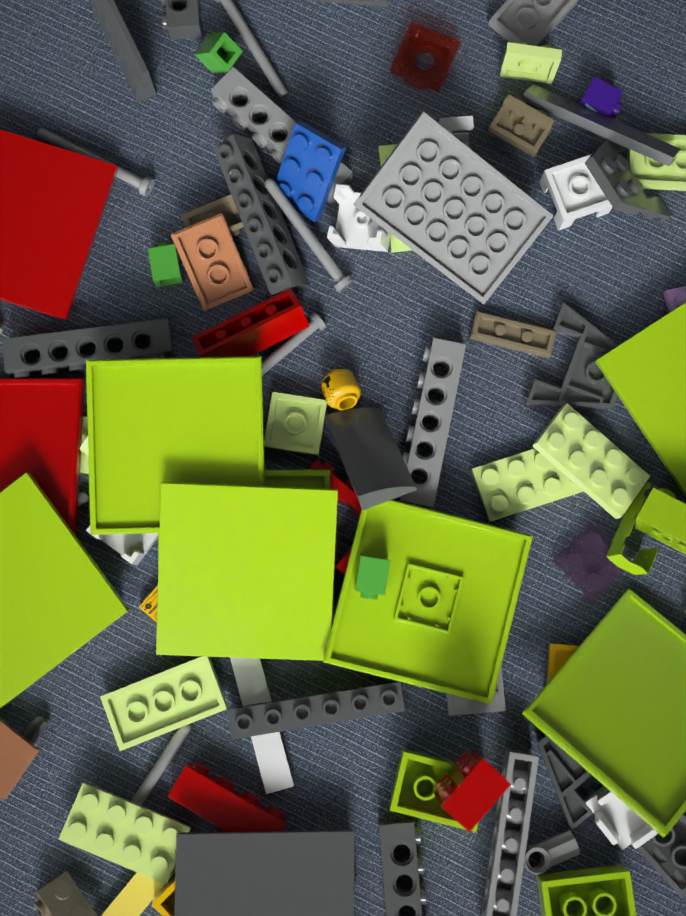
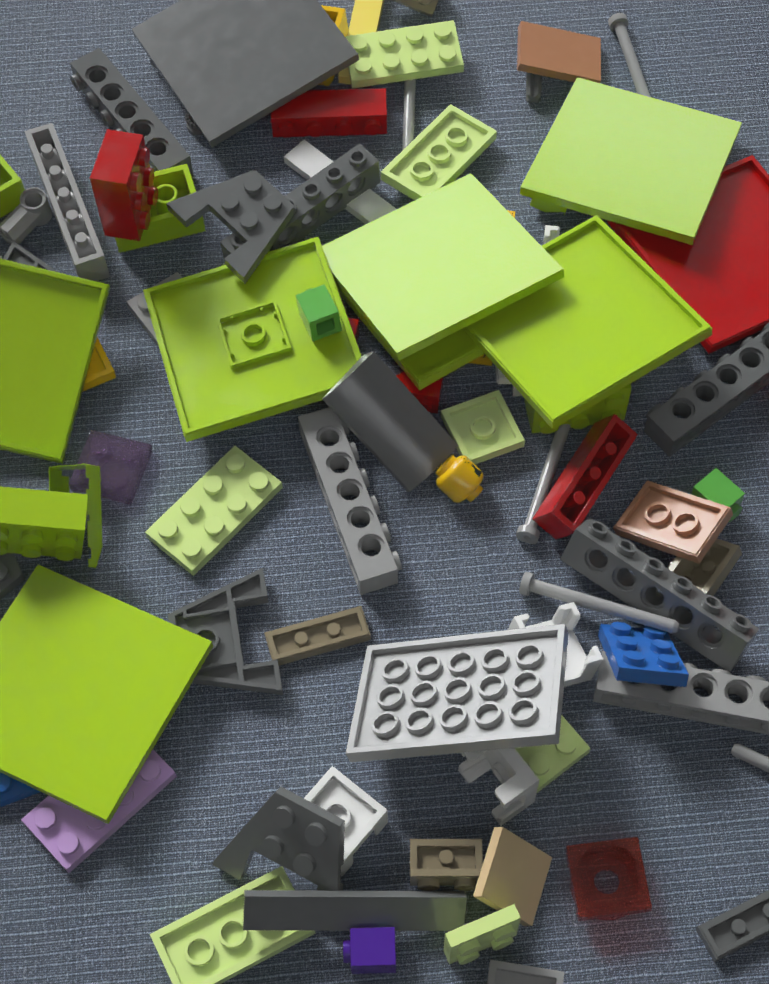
camera: 150 degrees right, 20 degrees down
(366, 718) = (248, 208): none -> dark grey wing
(486, 89) = (512, 875): none -> tan tile
(591, 461) = (163, 547): yellowish green plate -> none

